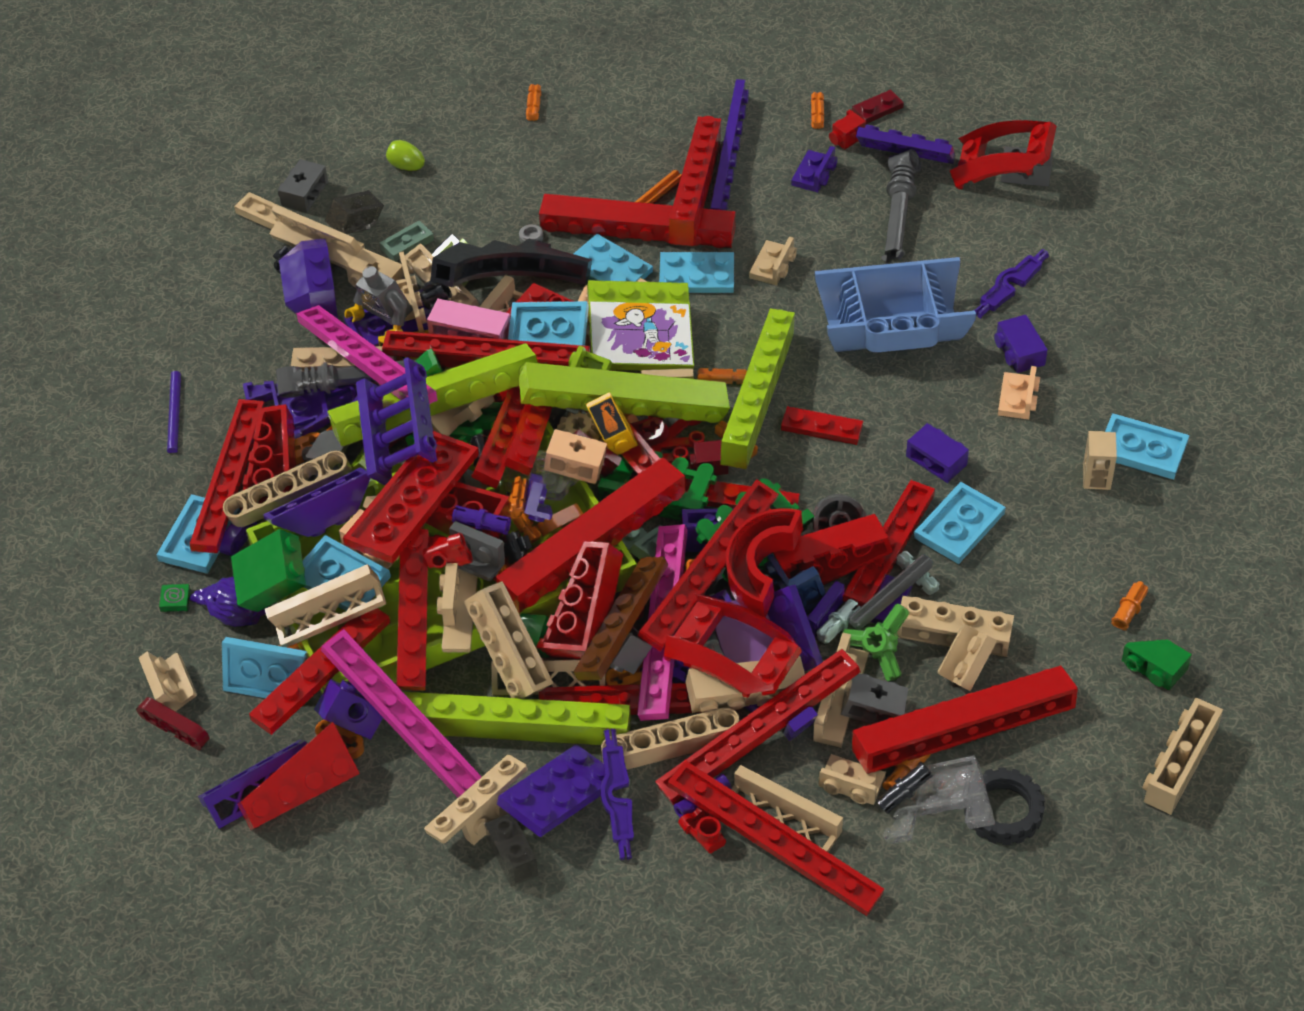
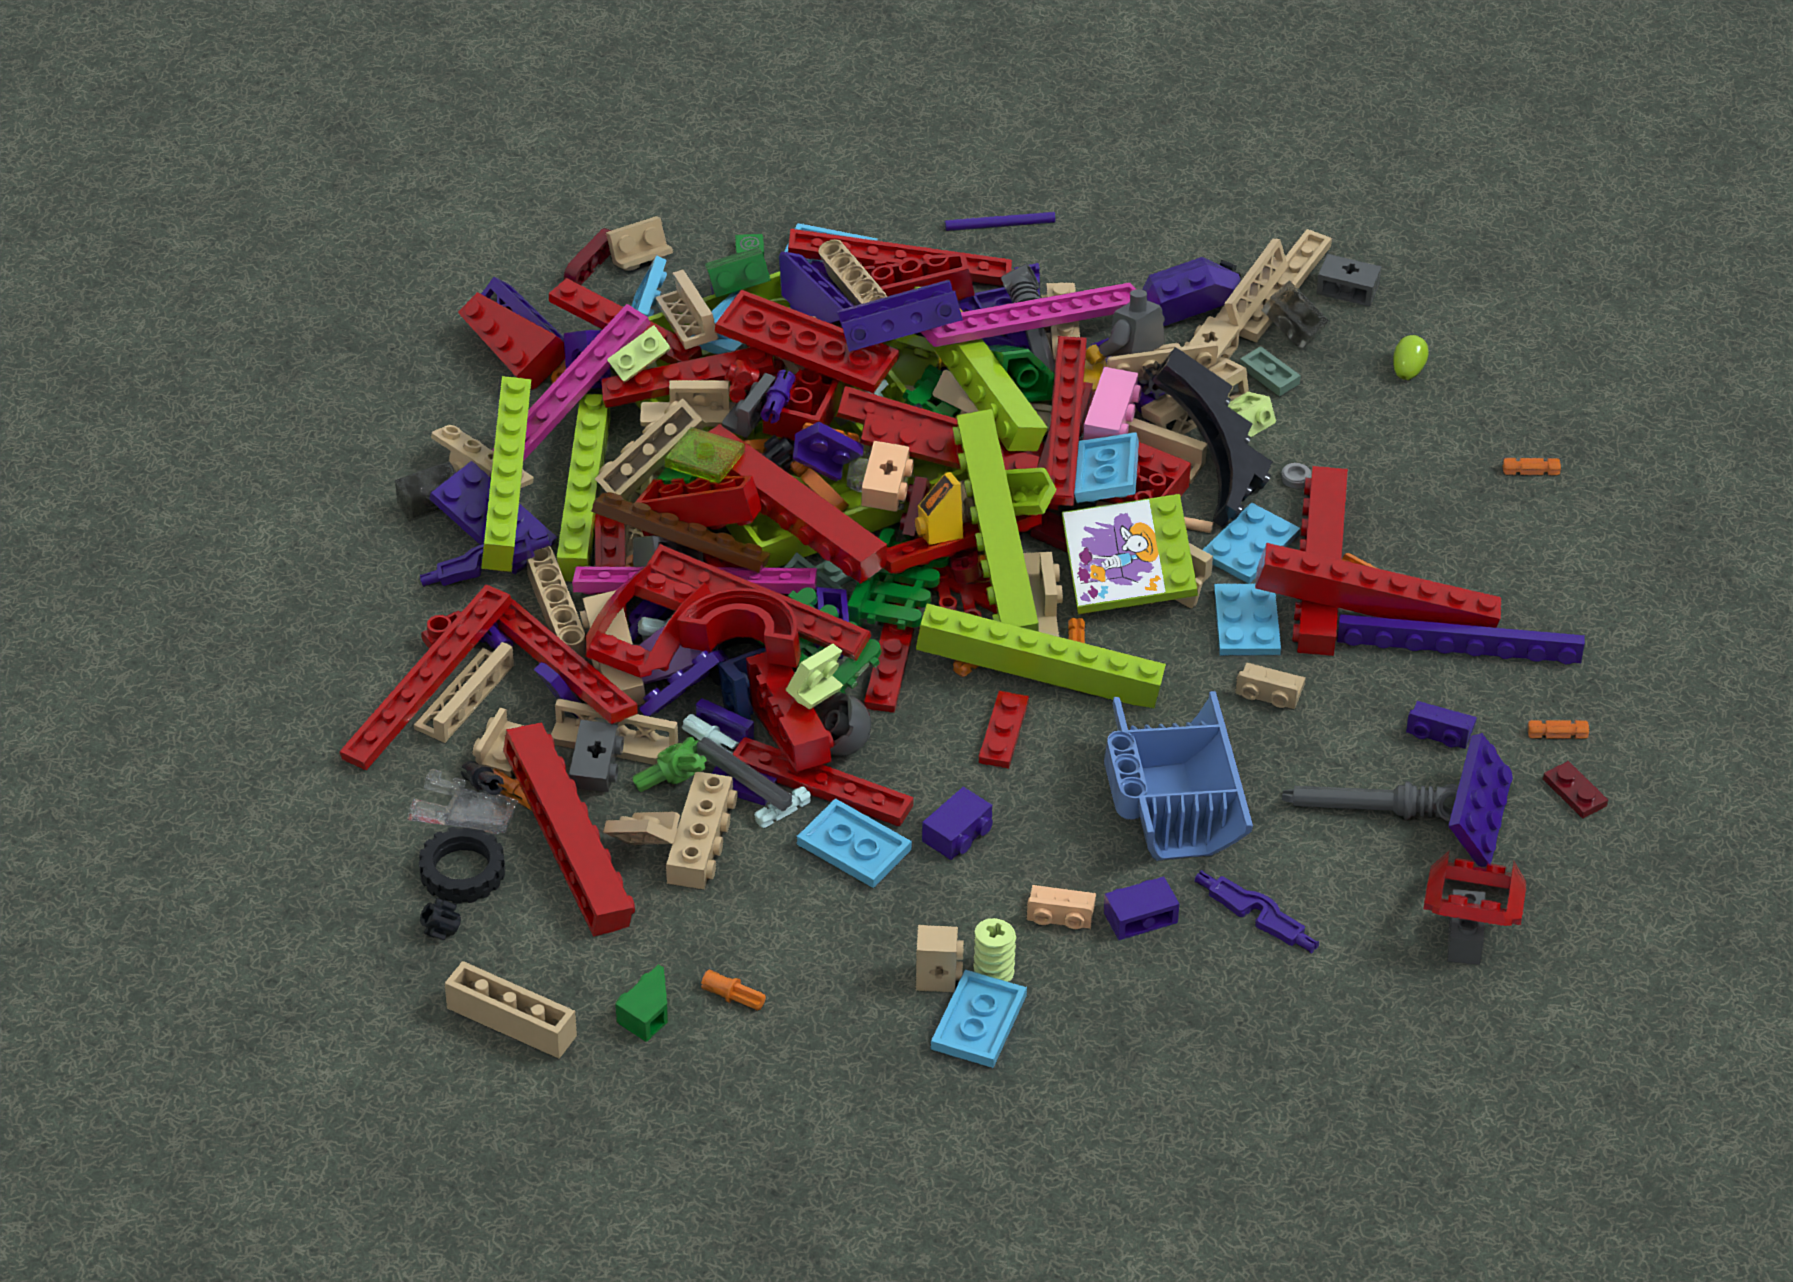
camera: 85 degrees right, 5 degrees down
(385, 641) = (639, 354): none -> yellowish green bracket
(529, 758) = (506, 474): none -> lime brick
(547, 581) = (704, 455): none -> clear neon green plate
(820, 510) = (814, 678): none -> yellowish green bracket
(845, 130) = (1517, 752): red brick -> none
(1080, 824) = (440, 919): none -> black gear
(1086, 417) = (995, 949): none -> yellowish green piece

